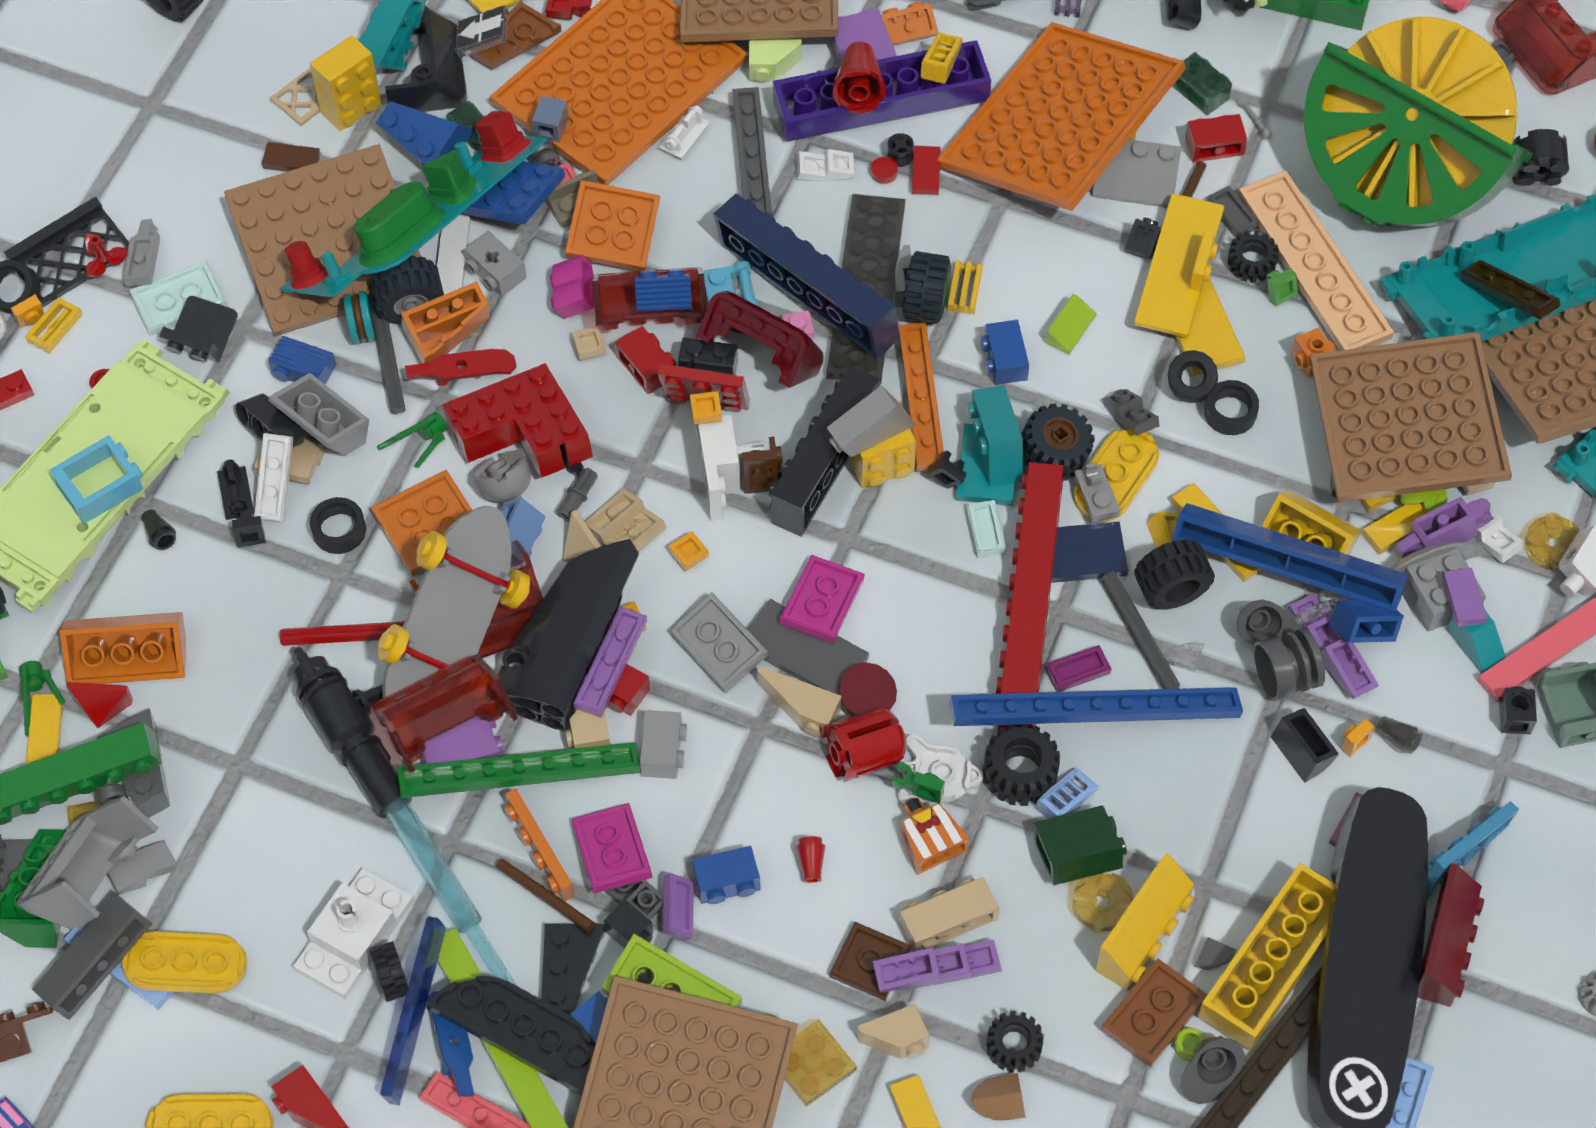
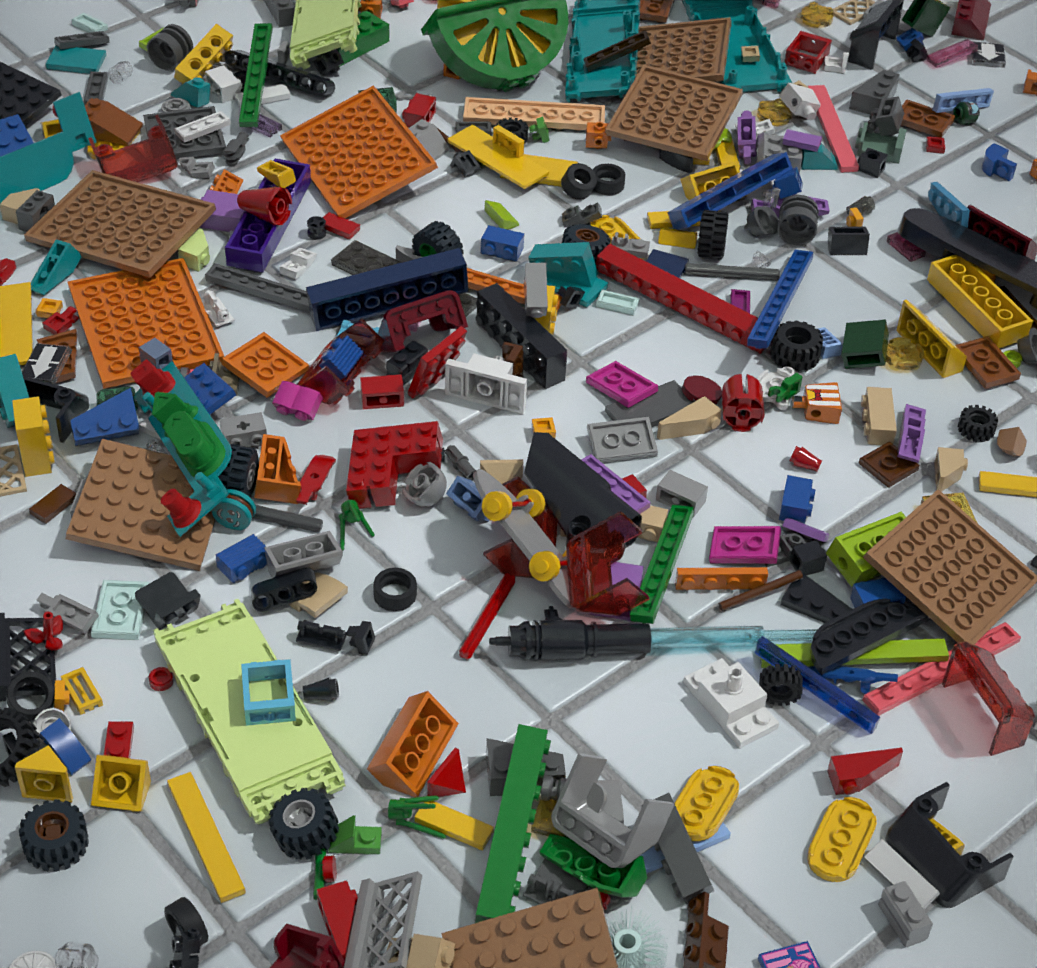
camera: 65 degrees left, 15 degrees down
(273, 477) = (333, 600): white tile -> none
(418, 511) = (428, 542): orange plate -> none
(589, 342) = (345, 413): tan plate -> none
(625, 519) = (500, 447): tan slope -> none
(706, 407) = (464, 357): light orange plate -> none
(884, 170) = (323, 241): red tile -> none
(1214, 954) = (959, 327): dark grey tile -> none

